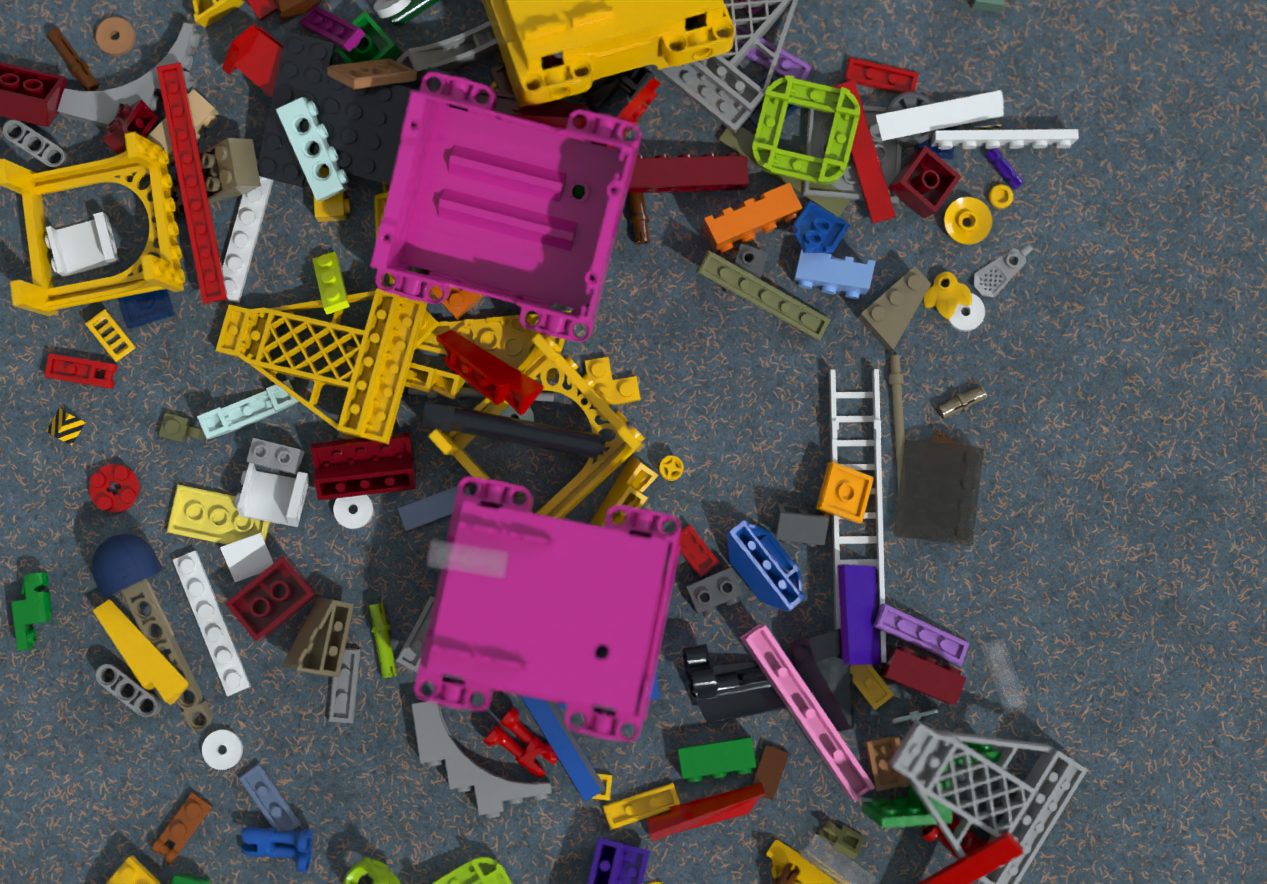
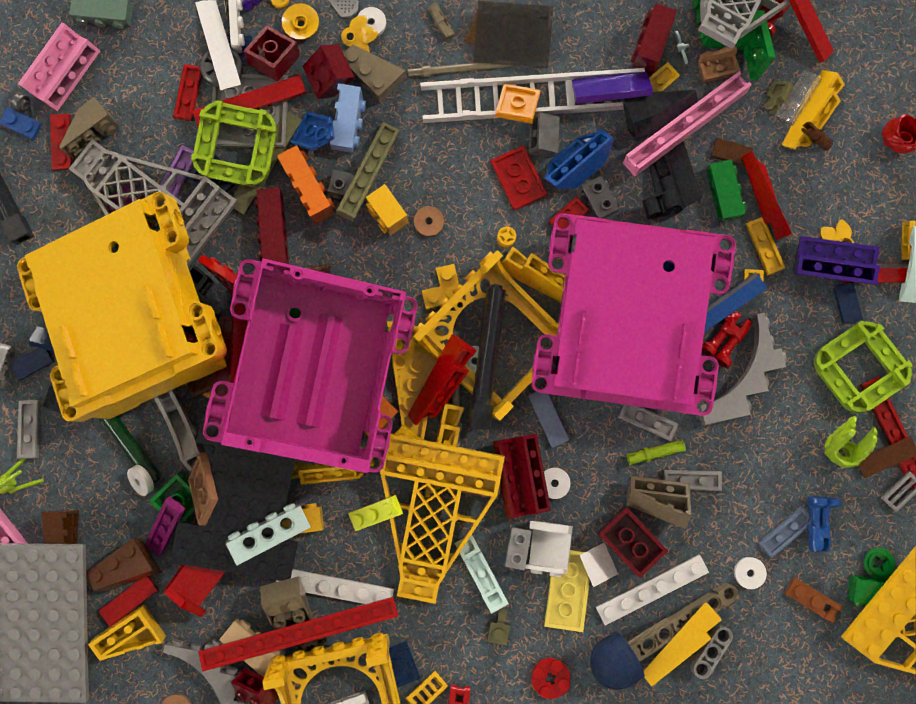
camera: 90 degrees left, 0 degrees up
(468, 559) = (602, 376): clear plate -> none
(701, 360) = (435, 227): none -> medium nougat piece
(711, 316) = (387, 210): none -> yellow brick
(749, 489) = (518, 178): none -> red tile
(897, 251) = (327, 69): none -> dark red brick
(921, 634) = (621, 43): medium lavender tile -> none

